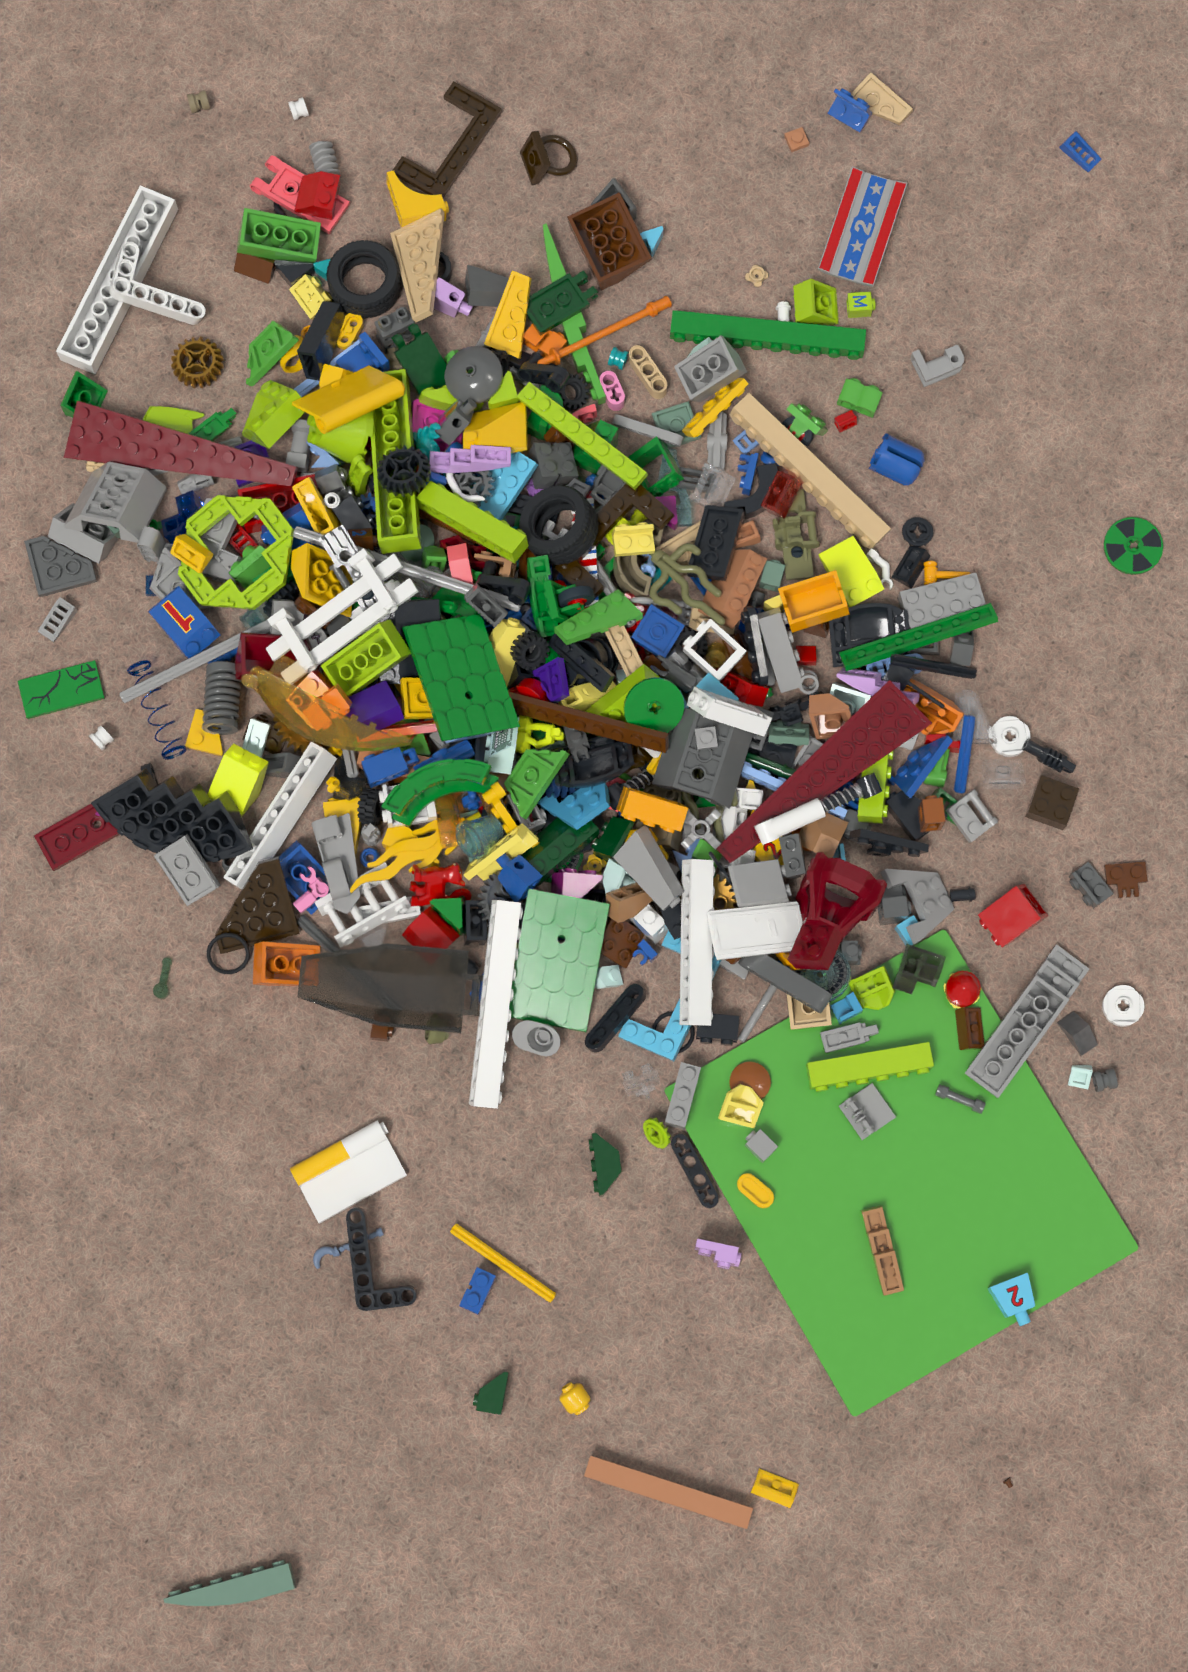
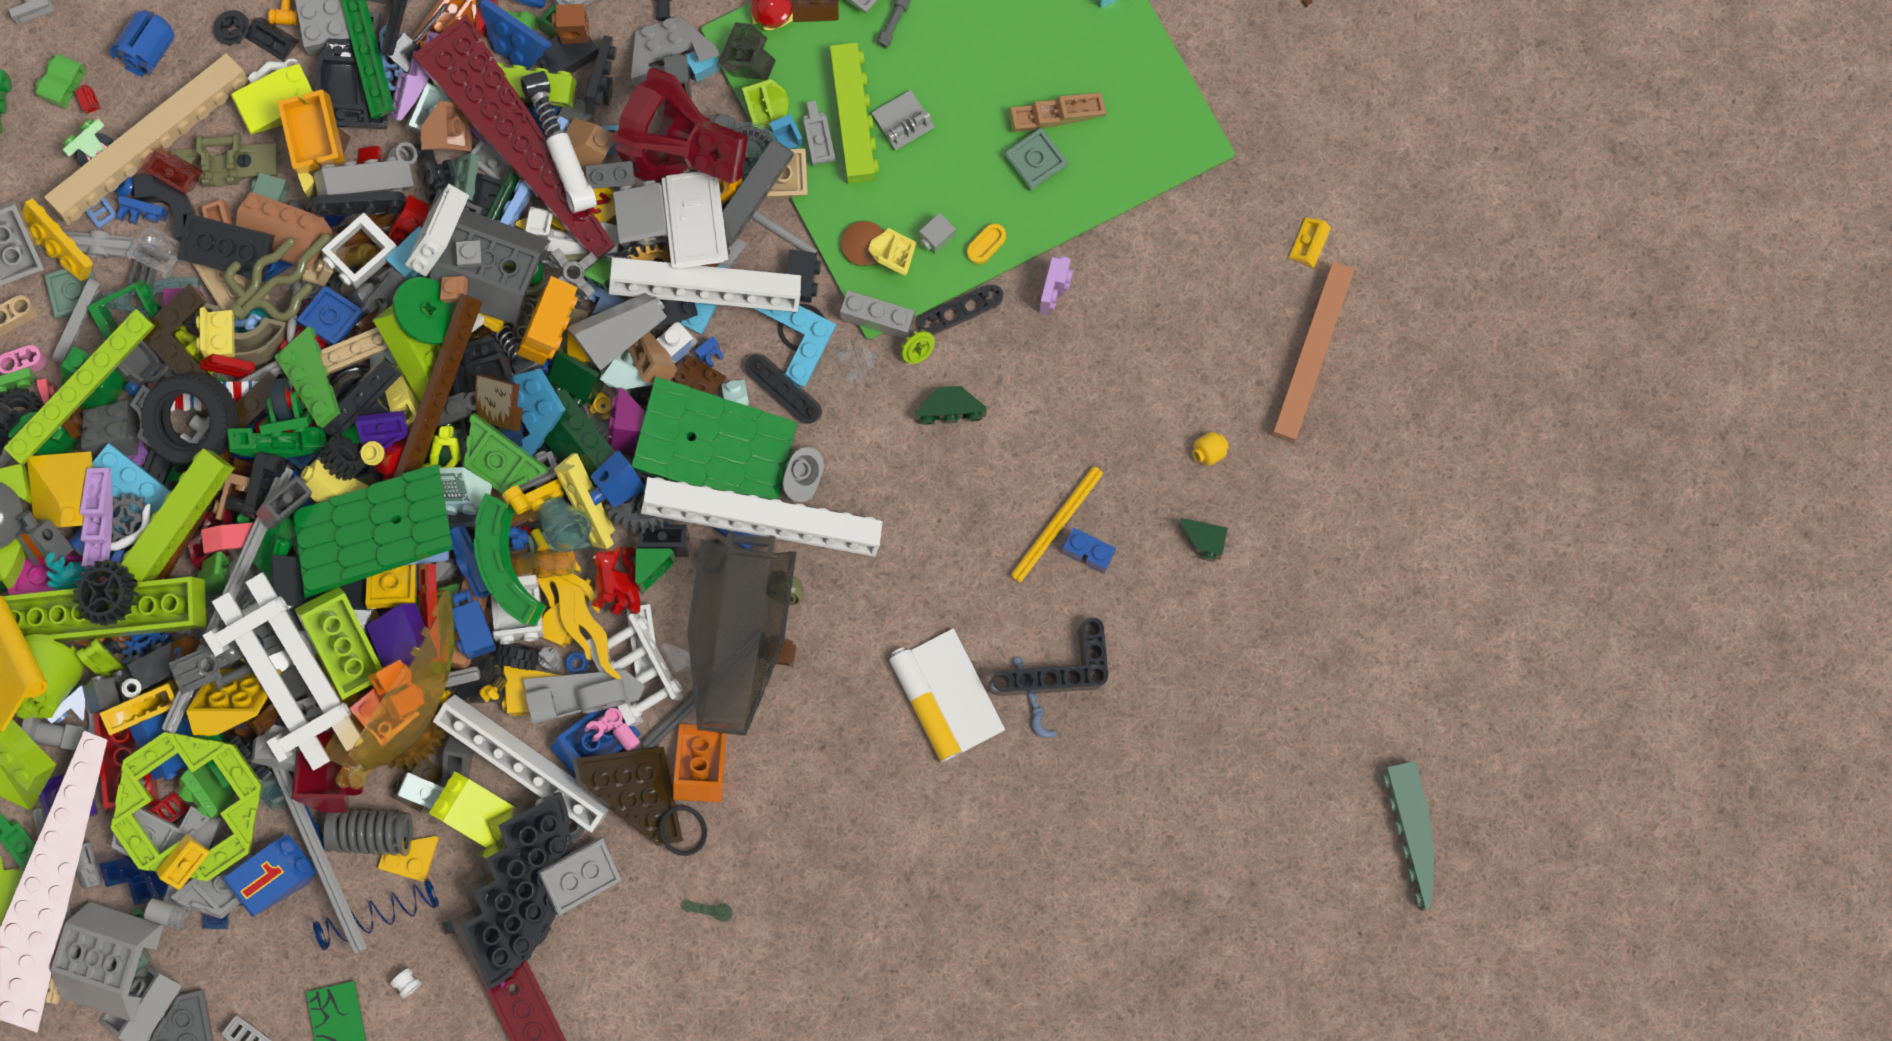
camera: 90 degrees left, 0 degrees up
(430, 931) = (672, 593): red slope -> none
(534, 674) = (372, 453): none -> light yellow plate
(576, 772) = (498, 402): none -> slope
(608, 551) = (227, 365): none -> red tile
(675, 728) = (452, 288): none -> nougat plate
(836, 1232) = (1036, 159): none -> sand green plate

